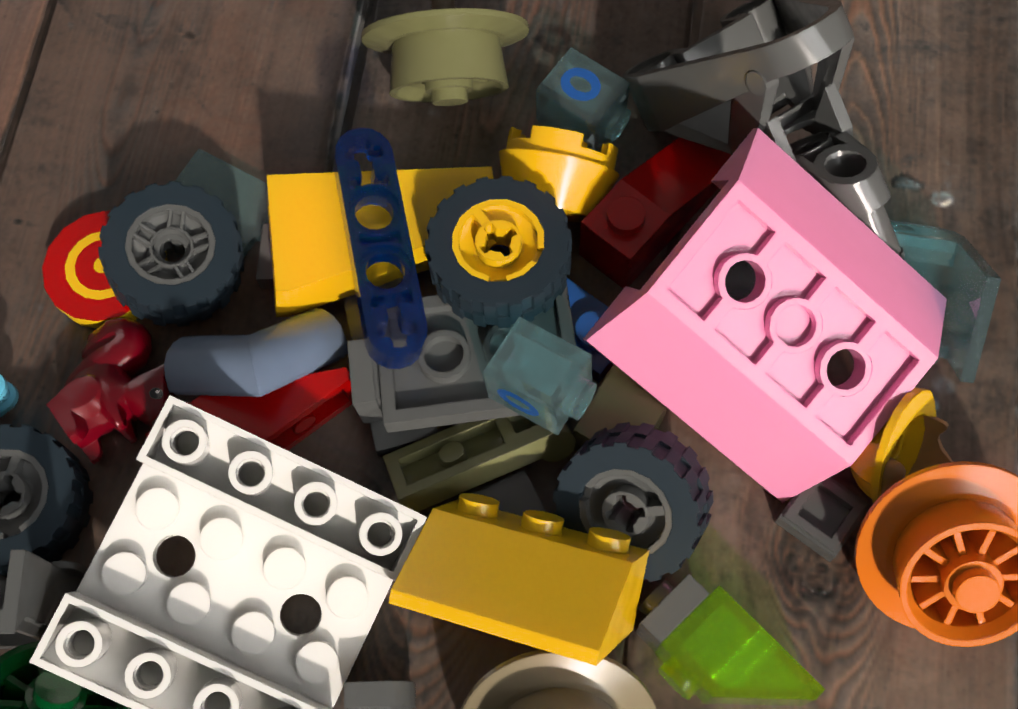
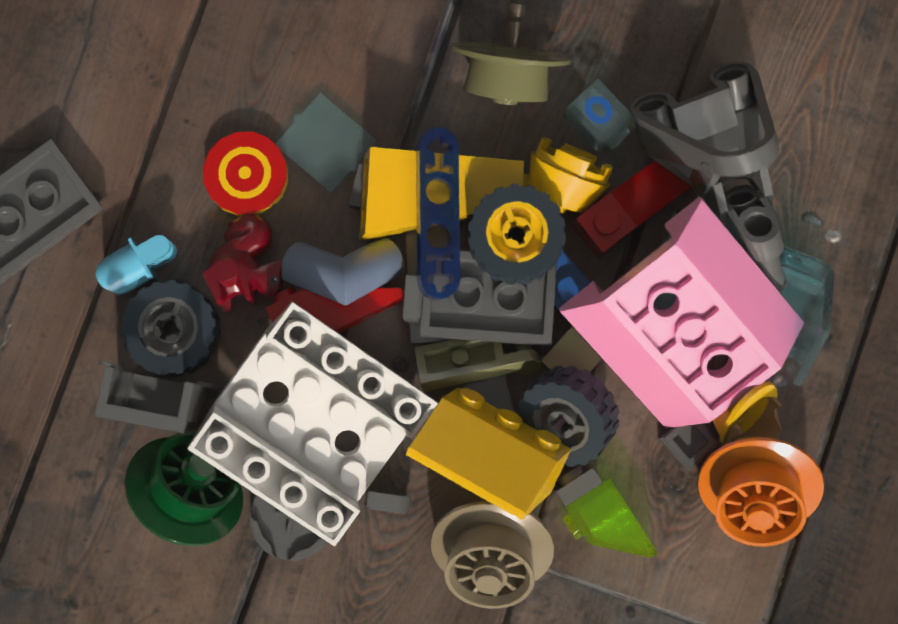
camera: 10 degrees right, 15 degrees up
(191, 225) = (307, 157): black wheel -> none
(540, 376) = (526, 330): clear light blue brick -> none

